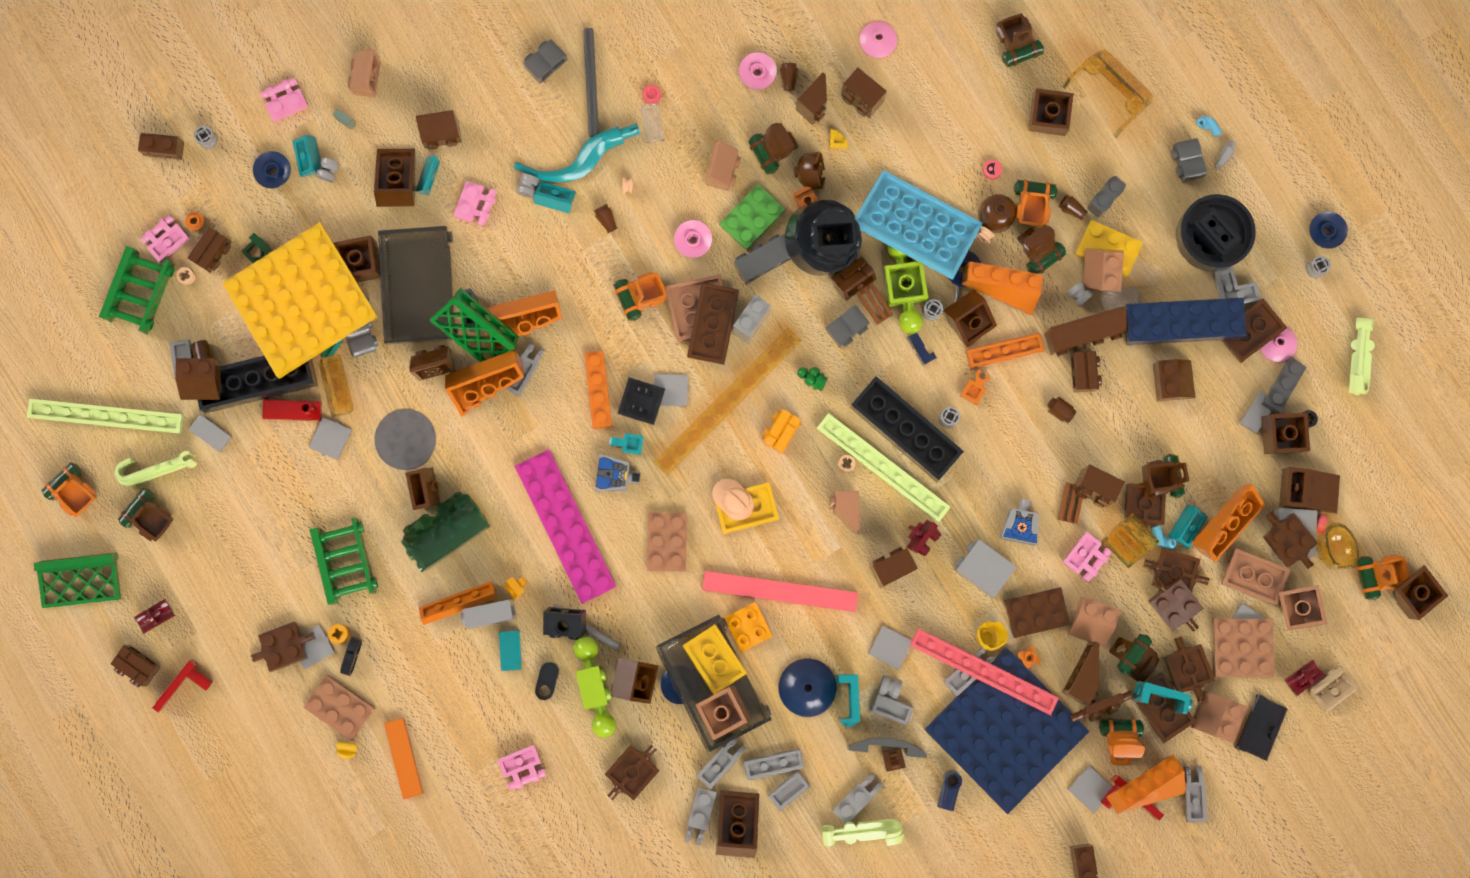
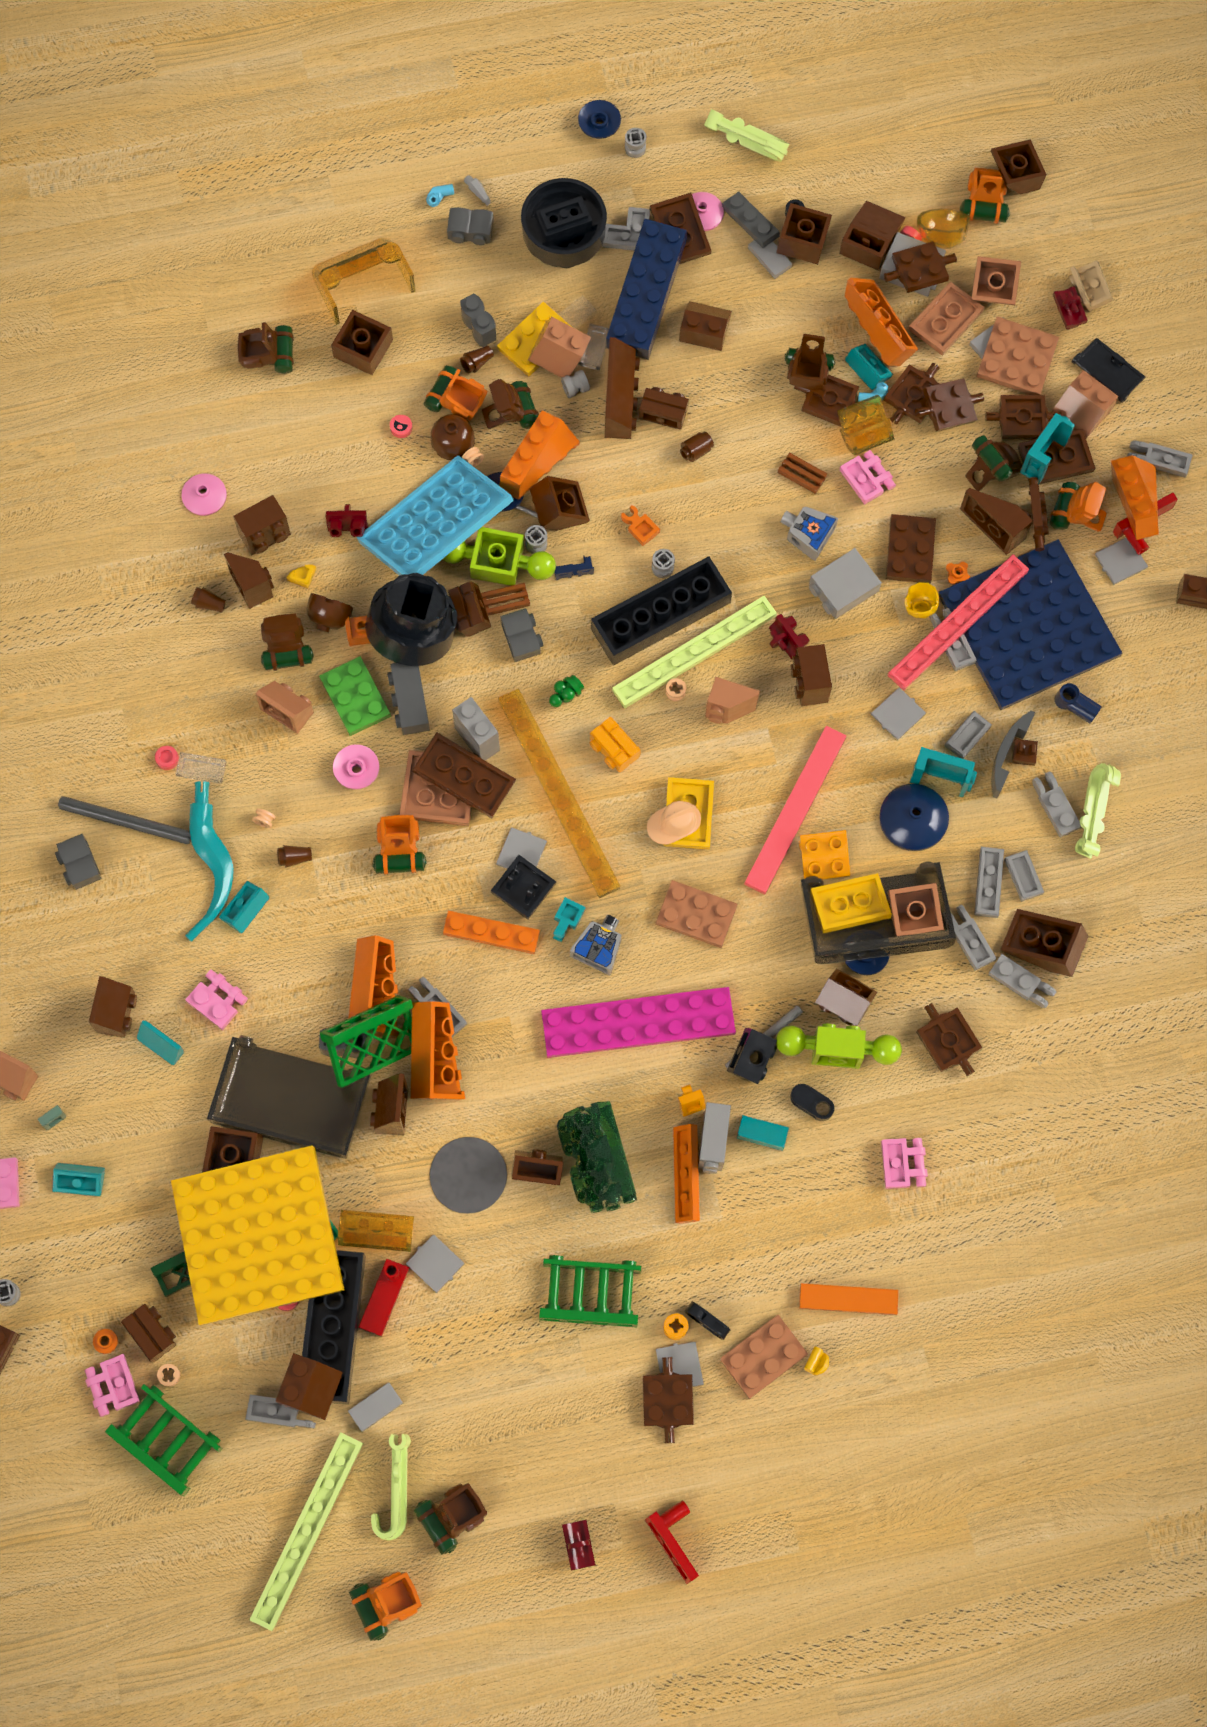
camera: 70 degrees left, 10 degrees down
(73, 564) = (477, 1628): green fence -> none
(135, 666) = (631, 1590): reddish brown brick -> none
(202, 349) = (270, 1382): reddish brown brick -> none
(264, 165) = (71, 1216): dark blue dish -> none
(327, 170) = (106, 1157): light grey wheel -> none
(361, 341) = (336, 1184): dark grey brick -> none
(395, 178) = (148, 1080): reddish brown slope -> none
(527, 185) = (221, 932): light grey wheel -> none
(757, 62) = (185, 622): bright pink dish -> none
(890, 686) = (944, 725): light grey wheel -> none
(895, 157) = (346, 520): none -> dark red hips
(1005, 350) = (609, 483): orange tile -> none
(1094, 621) = (939, 492): nougat slope -> none
(1098, 486) = (795, 435): reddish brown brick -> none

